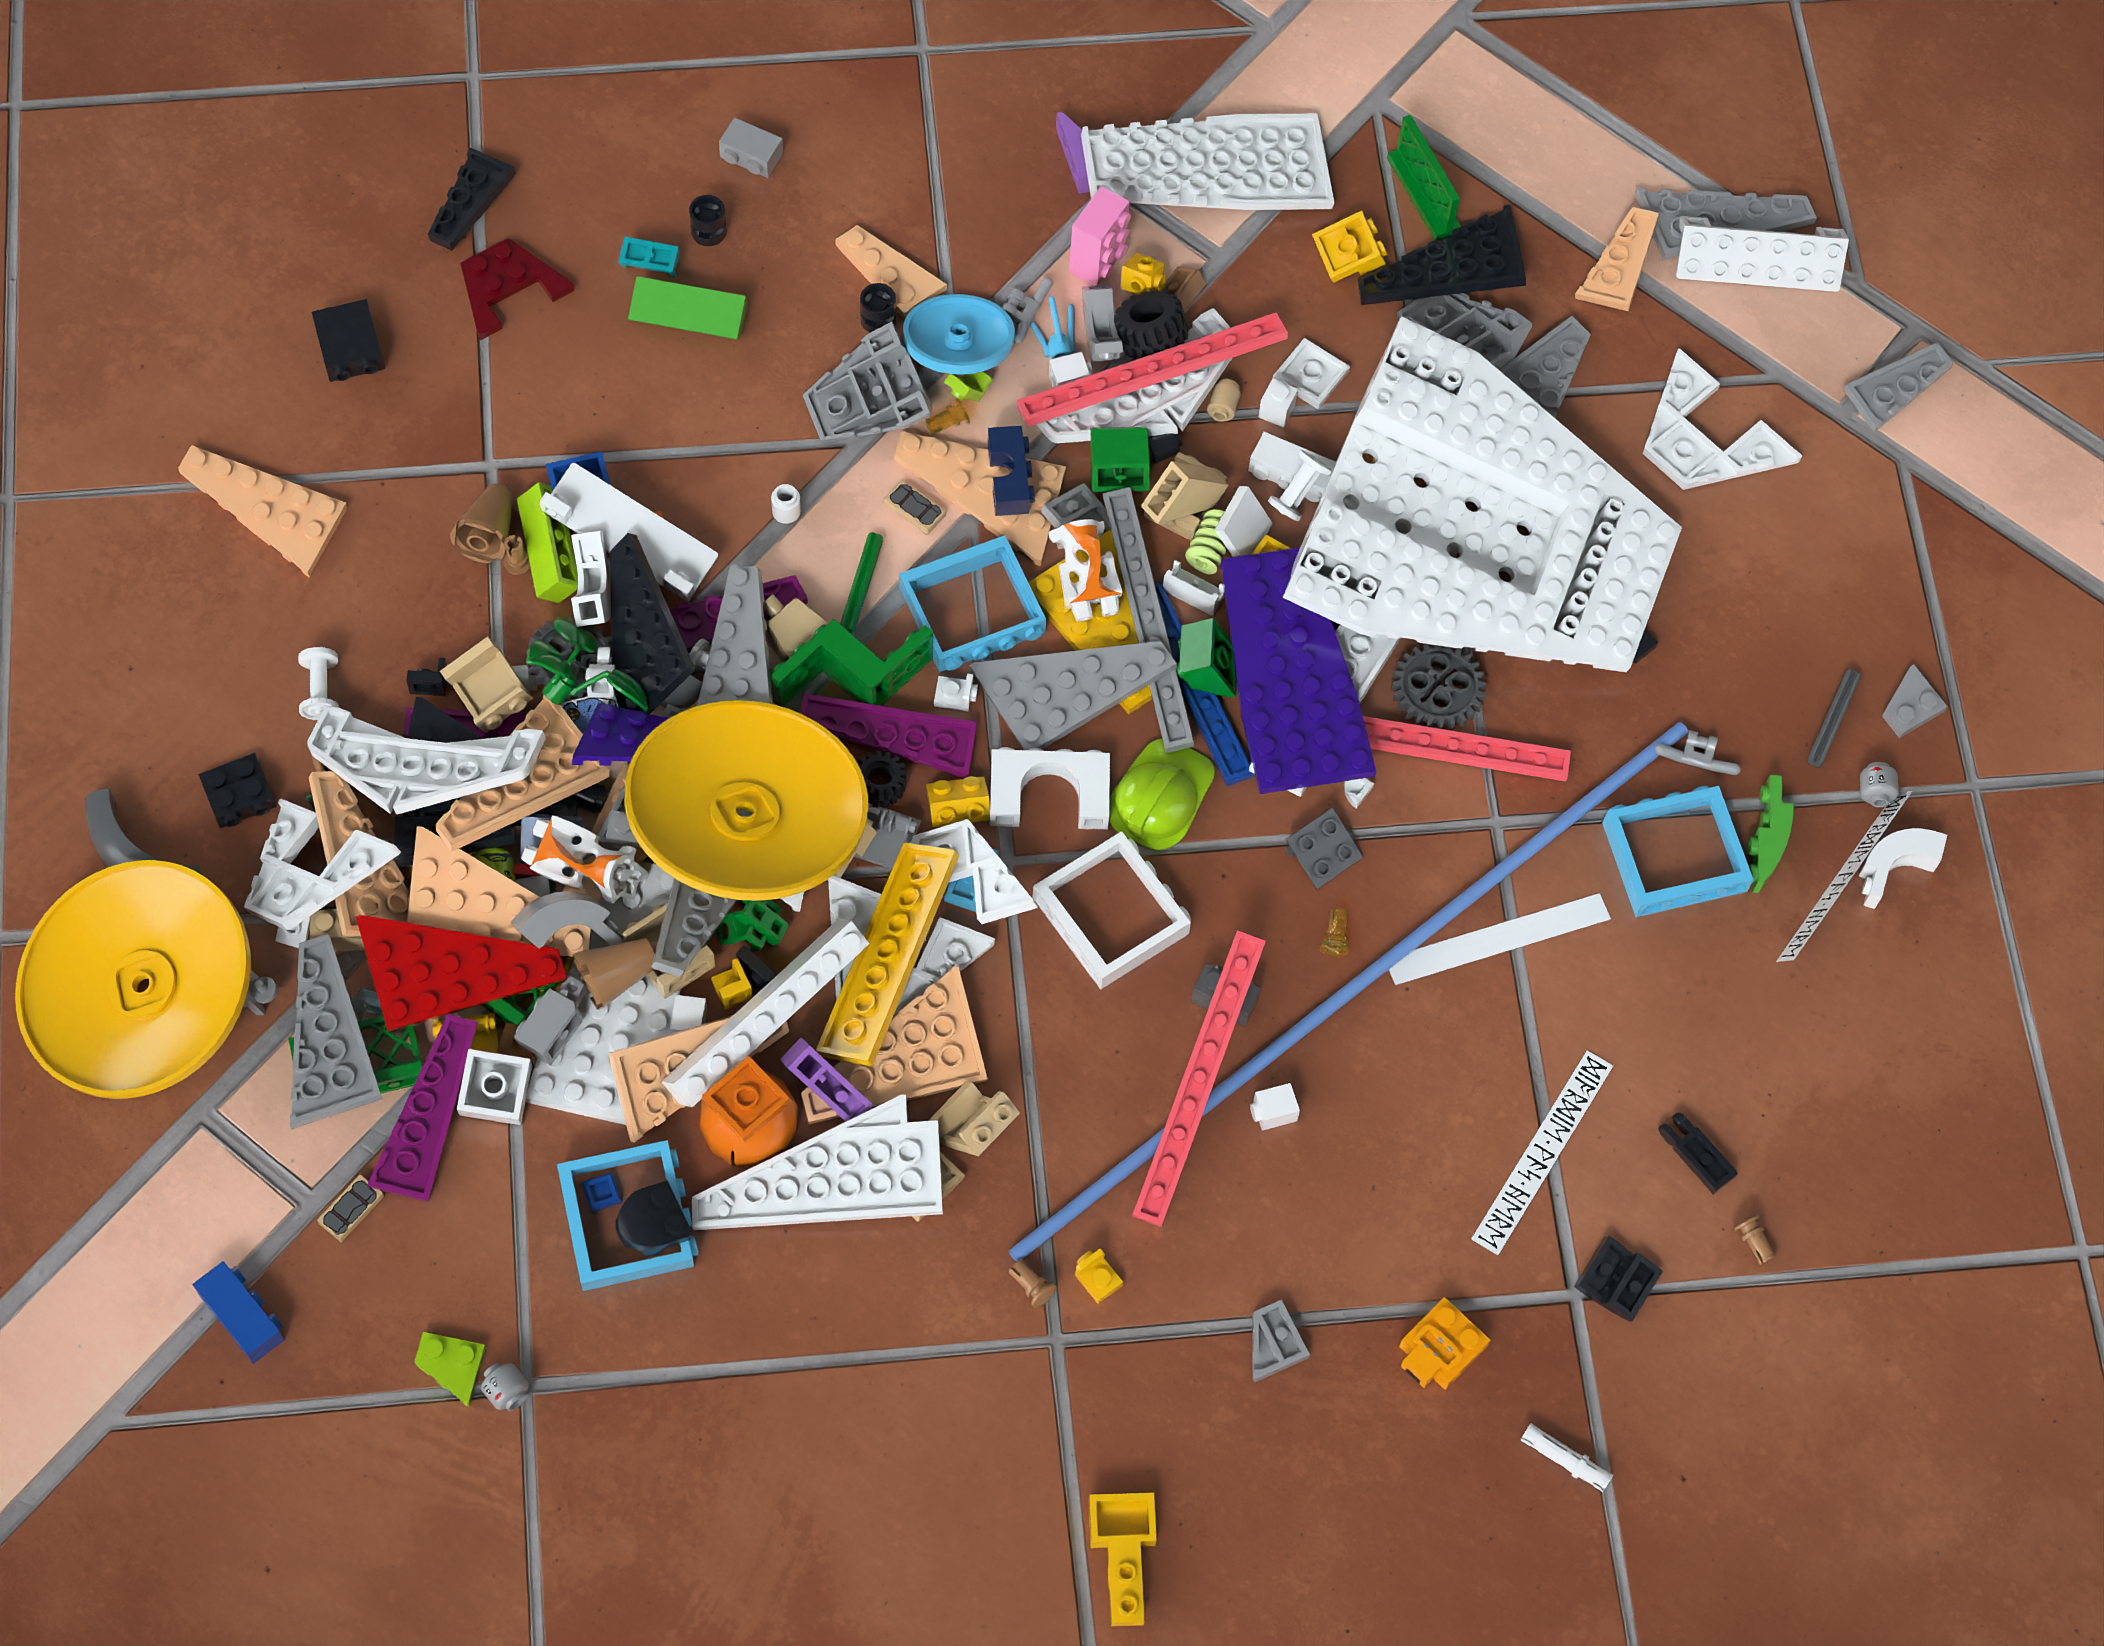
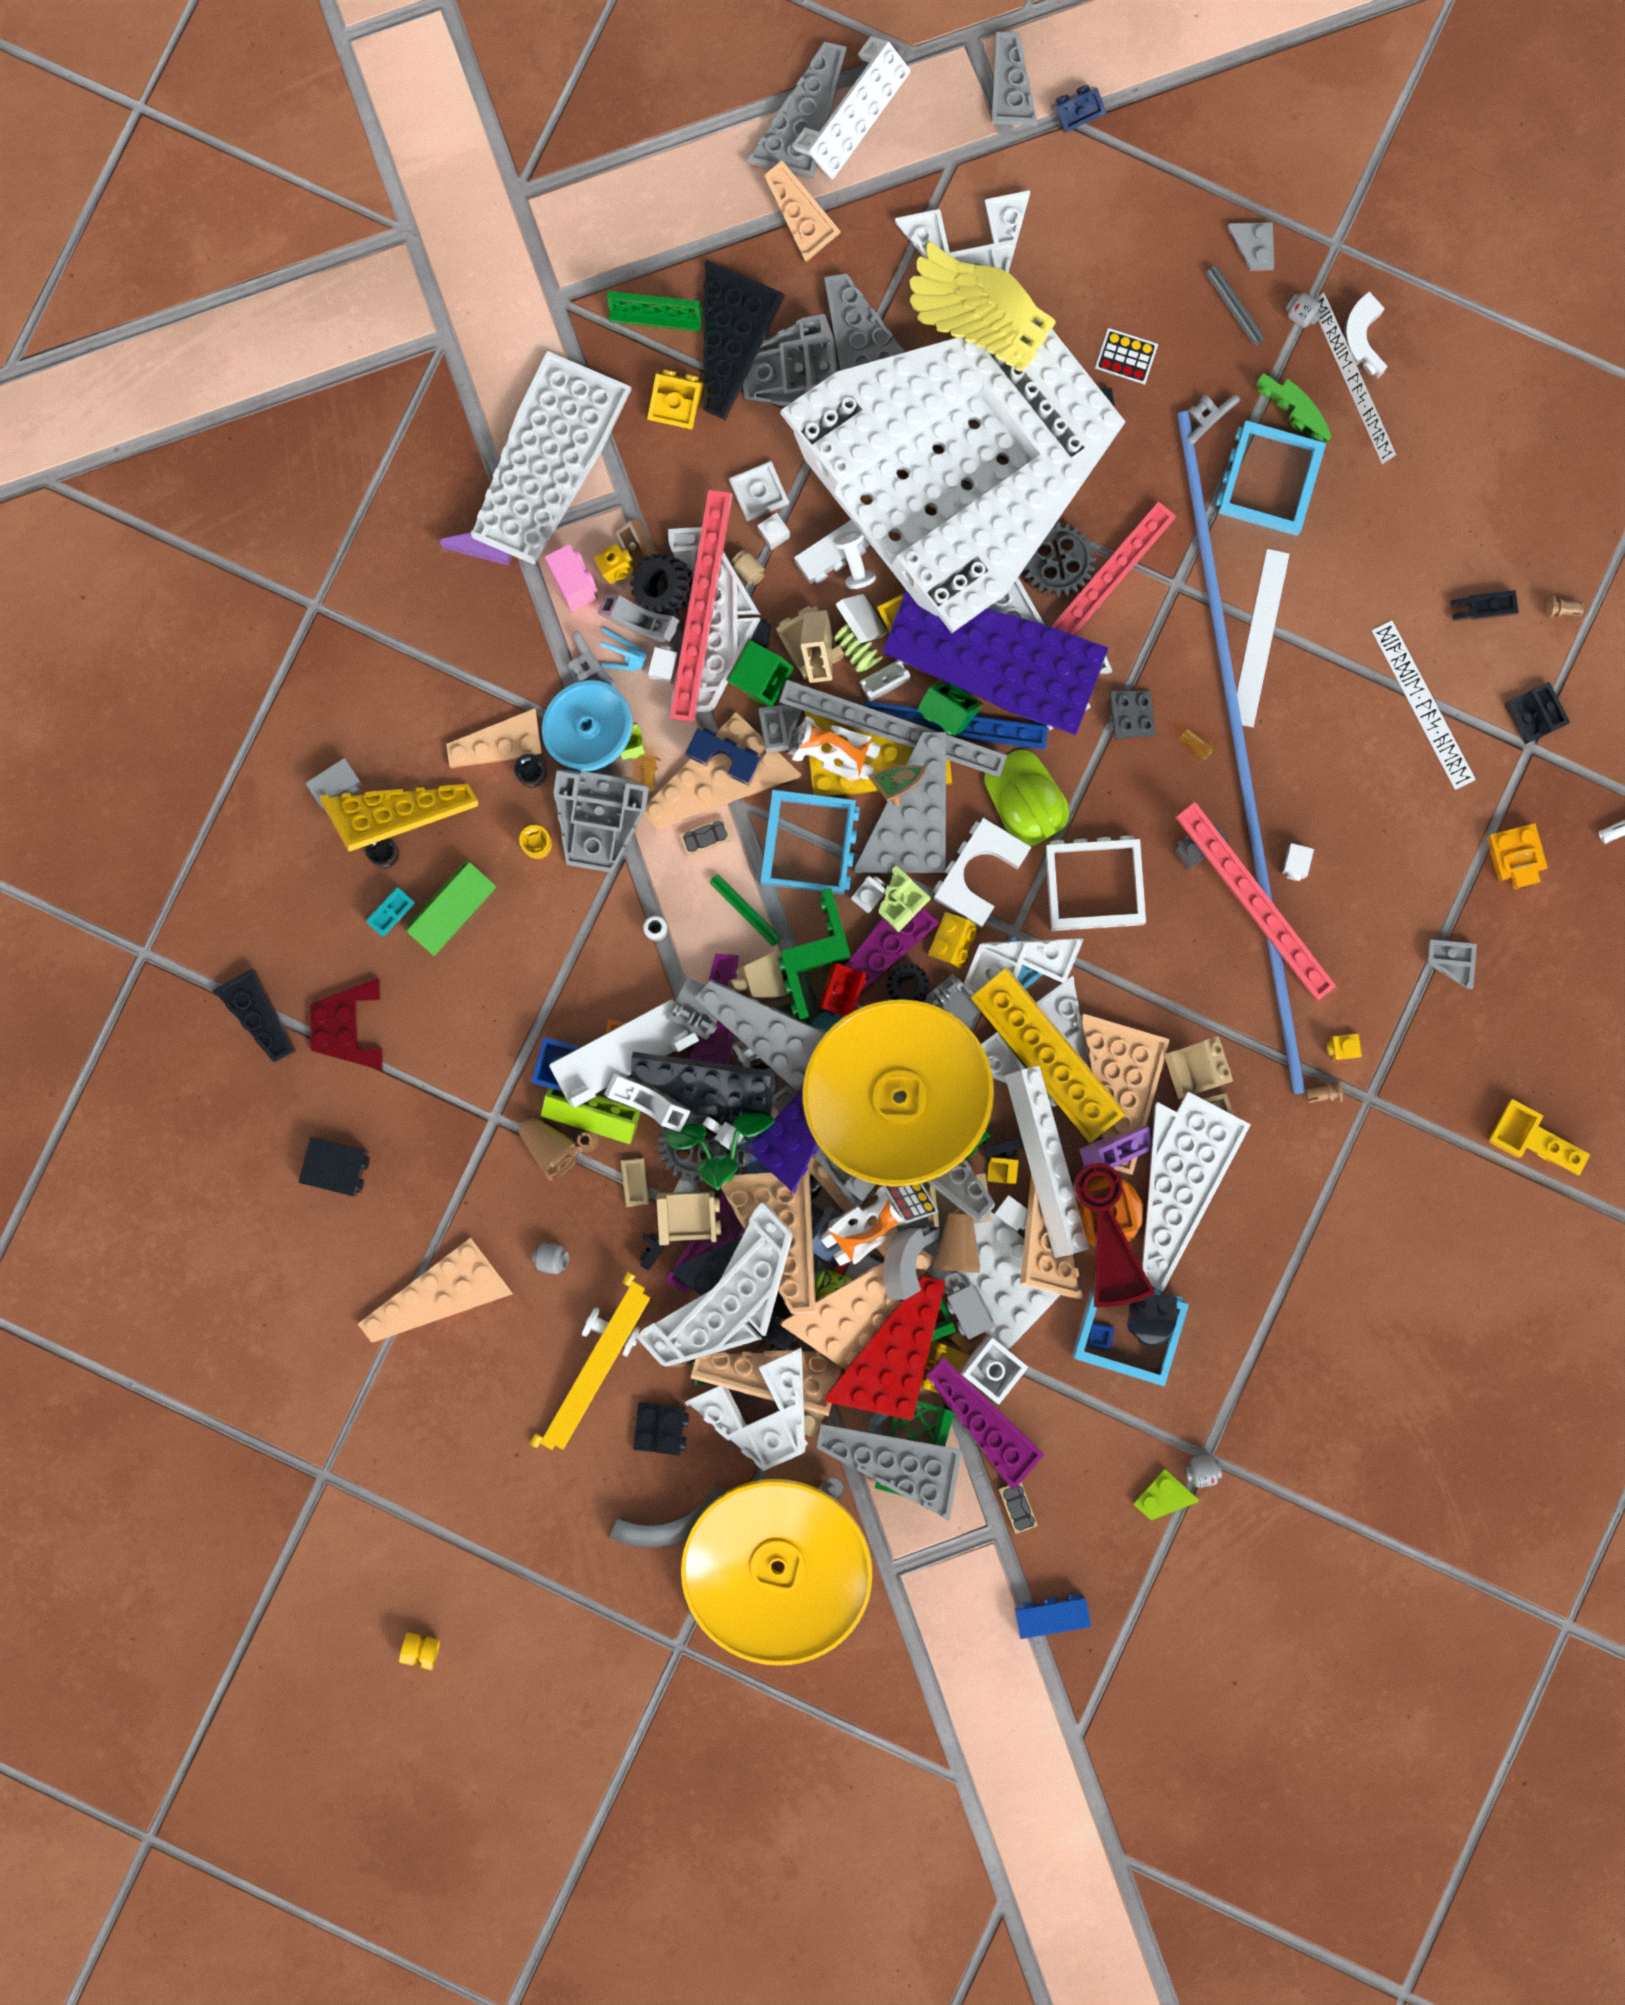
camera: 50 degrees left, 20 degrees up
(270, 685) = (596, 1367): none -> yellow piece
(367, 586) = (550, 1258): none -> light grey head
(501, 626) = (635, 1182): none -> tan tile
(587, 708) = (746, 1157): none -> dark grey hinge
(639, 884) = (911, 1201): none -> sticker
(681, 1136) = (1117, 1270): none -> dark red piece
(711, 577) = (690, 1013): none -> light grey hinge
(751, 200) = (387, 813): none -> yellow wing
(806, 350) = (535, 842): none -> yellow wheel
(831, 705) = (842, 990): none -> red bracket
(966, 721) = (902, 900): none -> yellowish green slope
(1090, 641) = (897, 781): none -> shield
(1644, 463) = (979, 305): none -> light yellow animal
(1702, 644) = (1126, 356): none -> sticker
(1921, 459) = (1079, 108): none -> dark blue bracket

